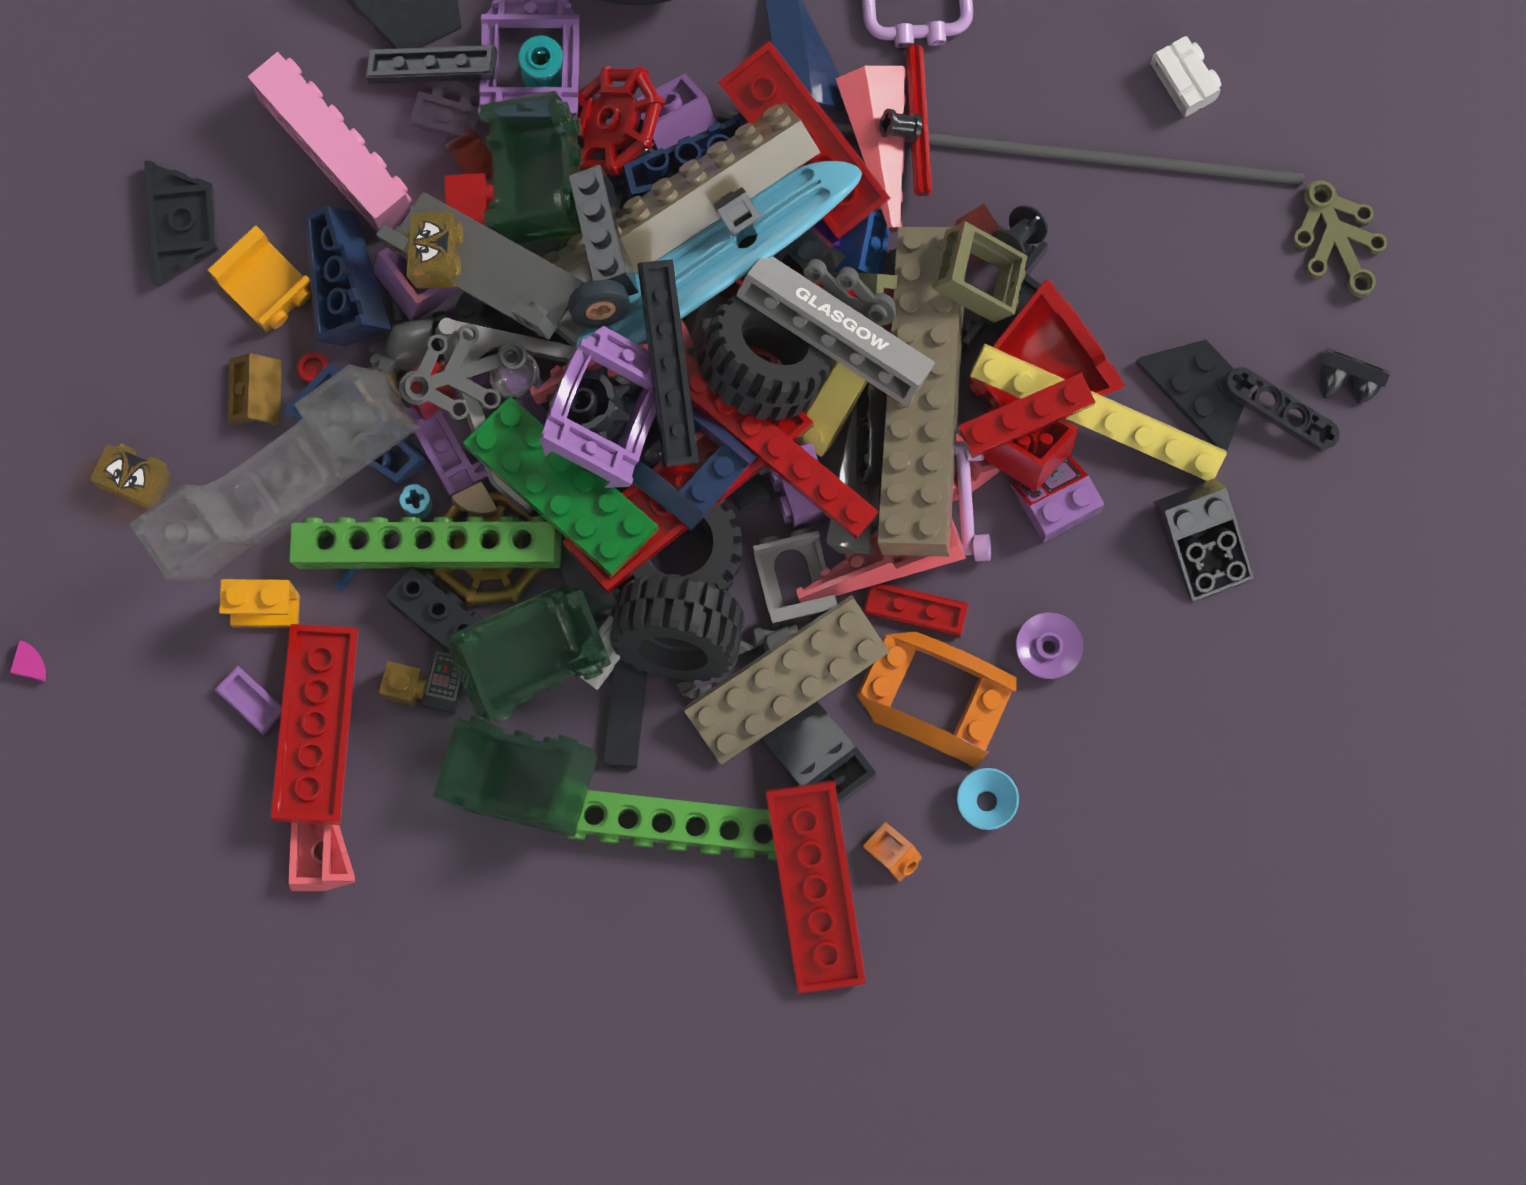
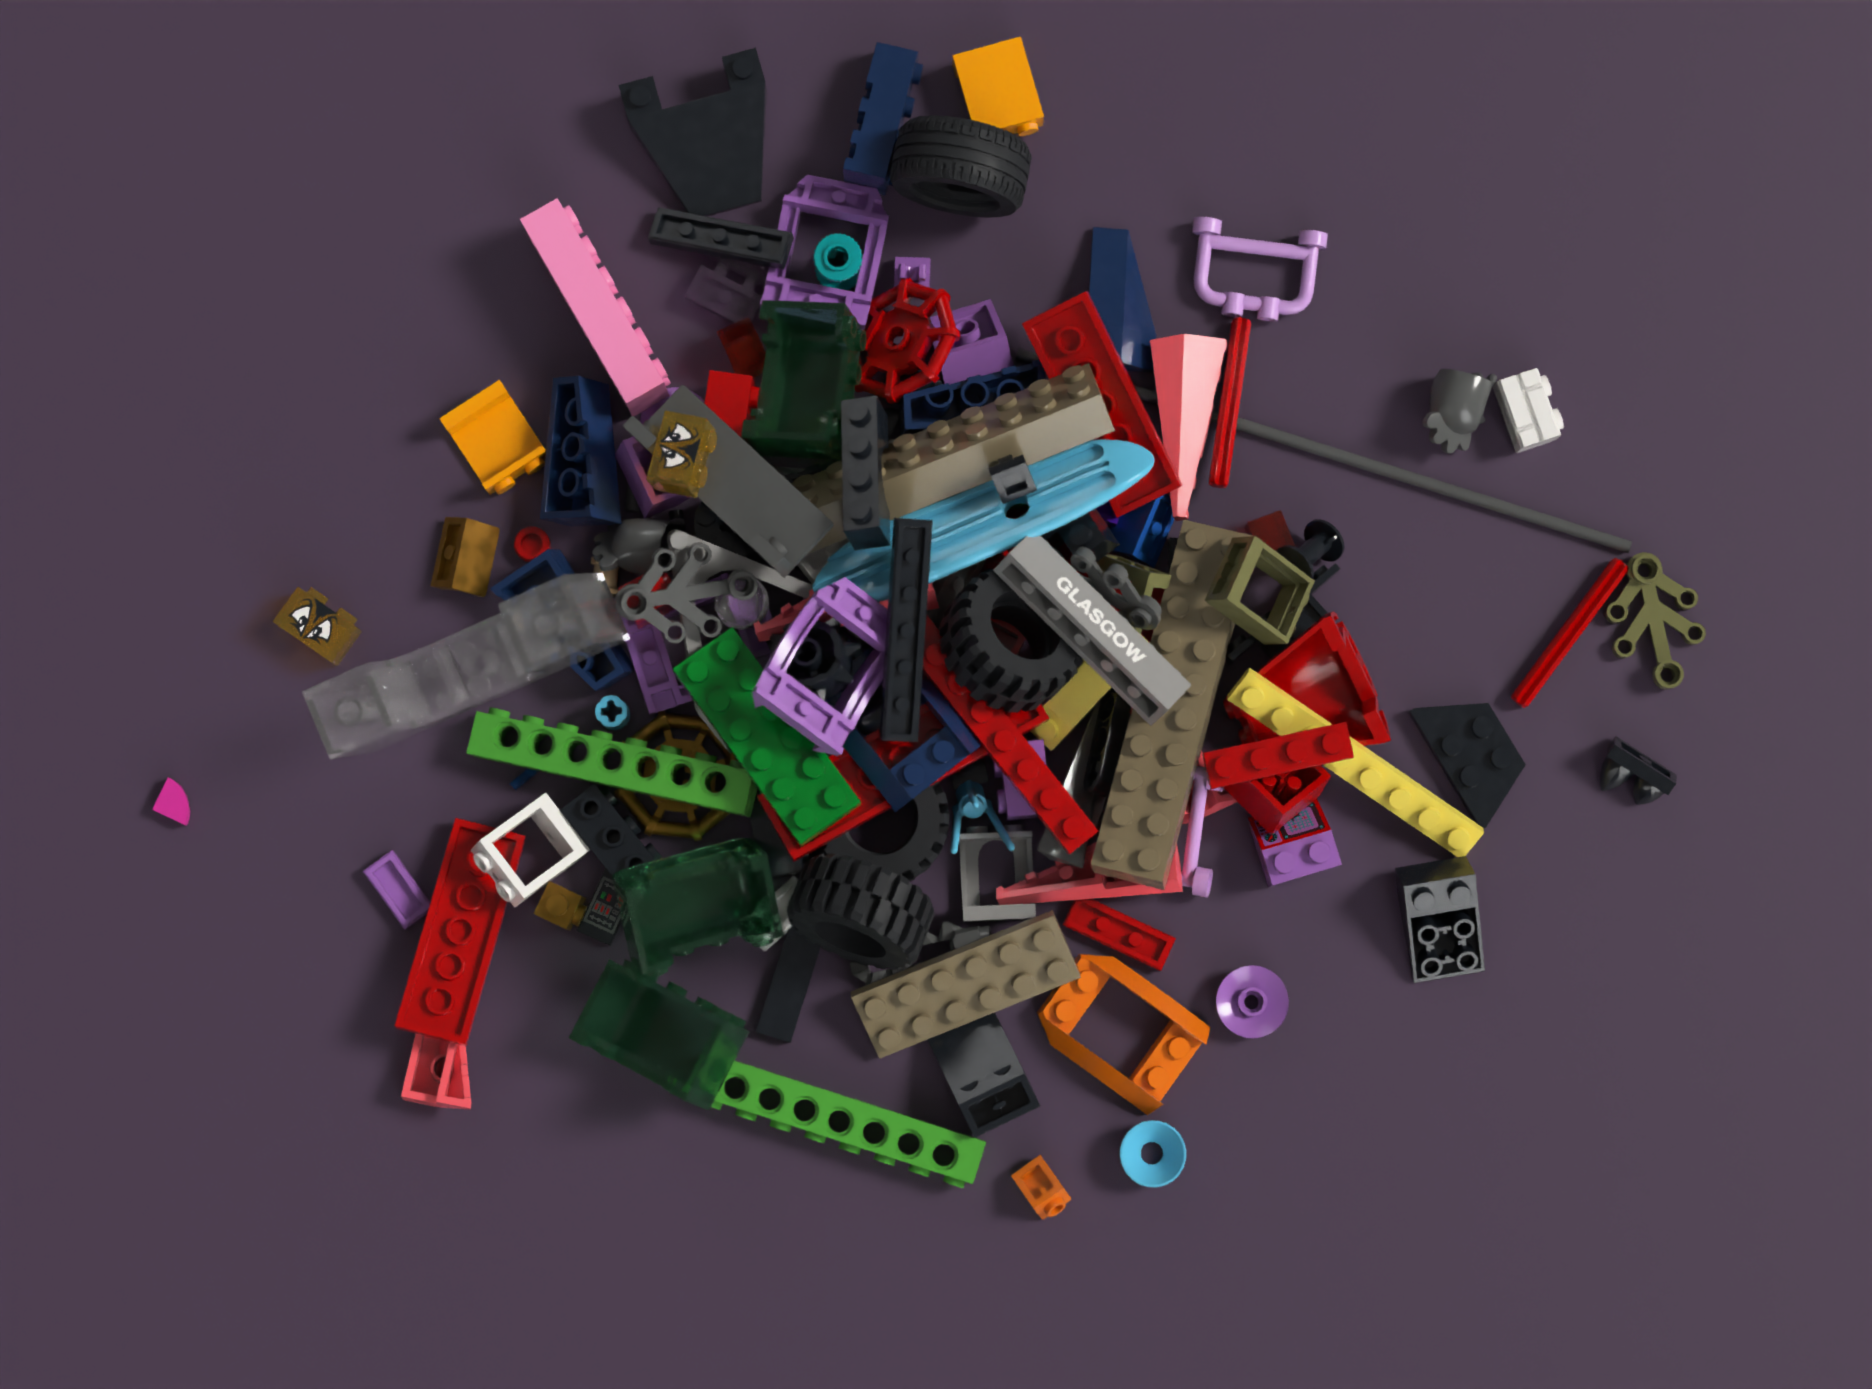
camera: 10 degrees right, 5 degrees up
(179, 221) = (419, 355): black wing -> none
(259, 603) = (426, 792): light orange panel -> none
(380, 613) = (557, 831): none -> white window
(475, 501) = (675, 725): tan tile -> none
(598, 304) = (844, 551): black bush -> none
(610, 57) = (912, 267): none -> medium lavender tile
(759, 519) = (972, 804): none -> medium azure plant
(816, 886) = (952, 1212): red plate -> none
(900, 125) = (1209, 407): black bush -> none
(1122, 84) = (1456, 407): none -> dark grey piece
(1265, 264) = (1569, 632): none -> red axle
(1279, 412) = (1550, 797): black beam -> none

